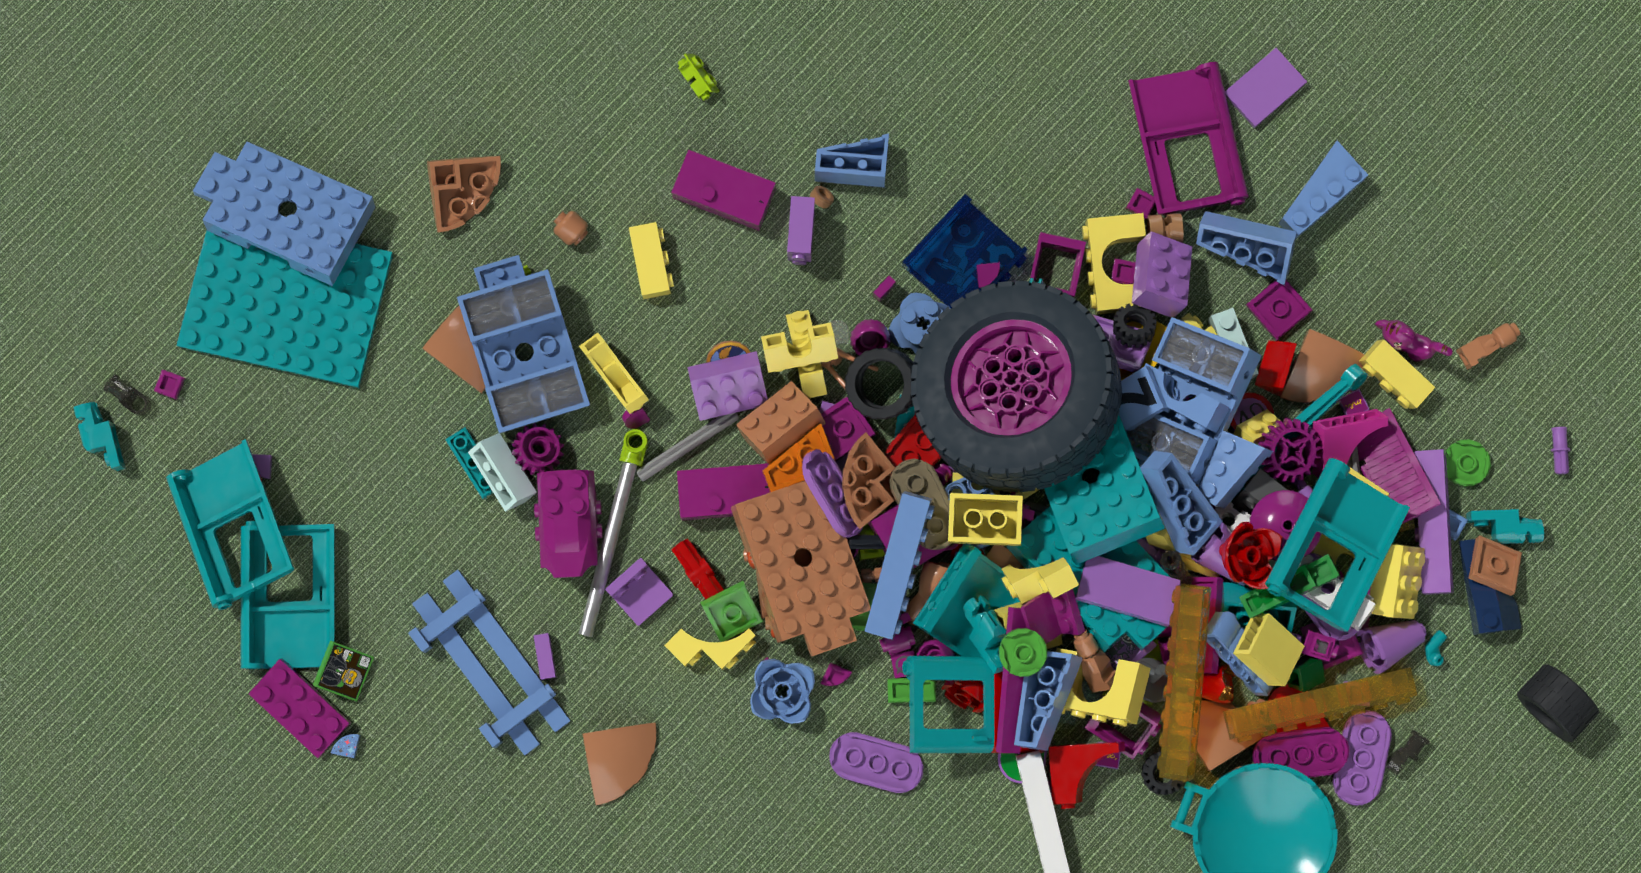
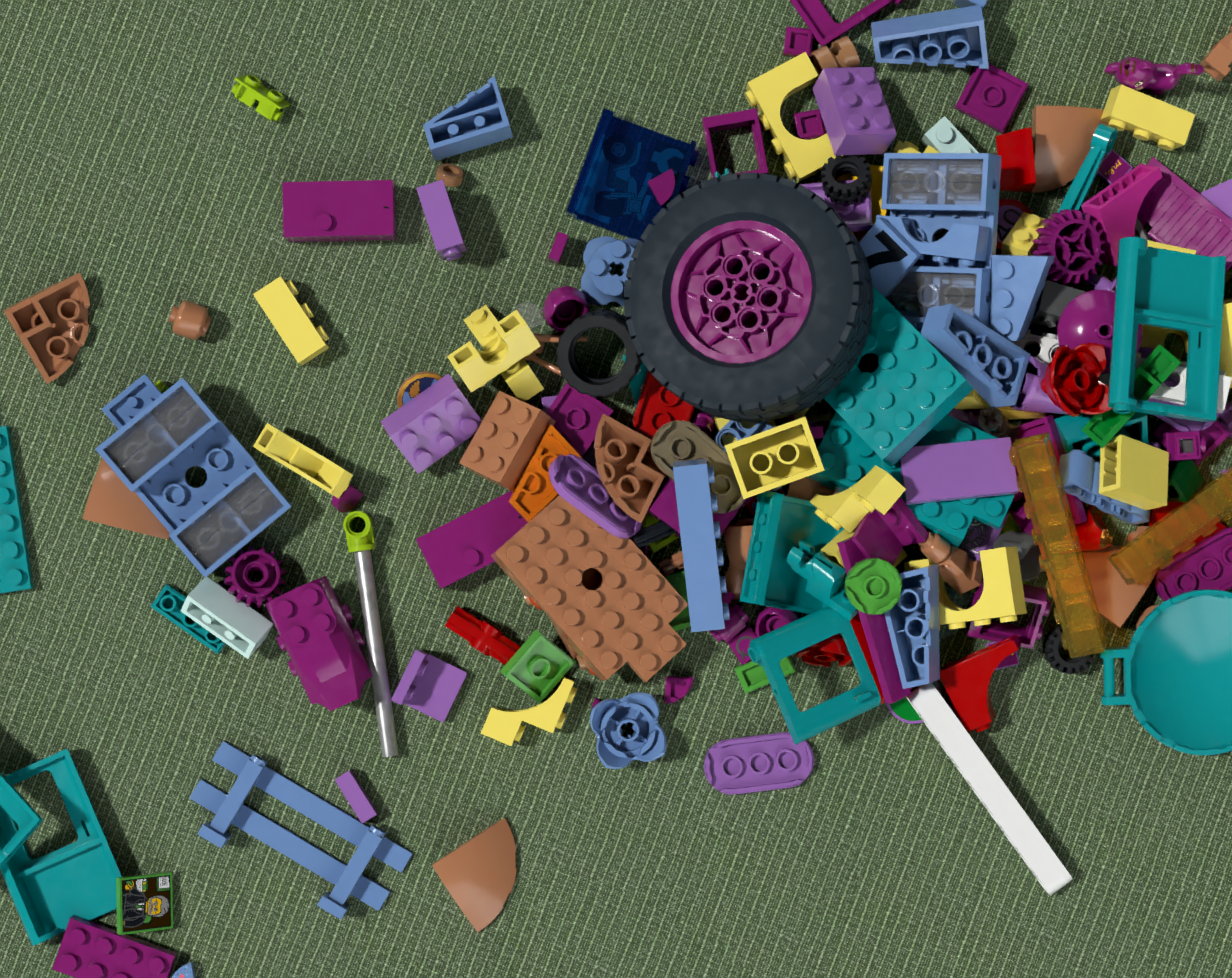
camera: 25 degrees left, 5 degrees up
(686, 445) = (414, 506): light grey axle -> none

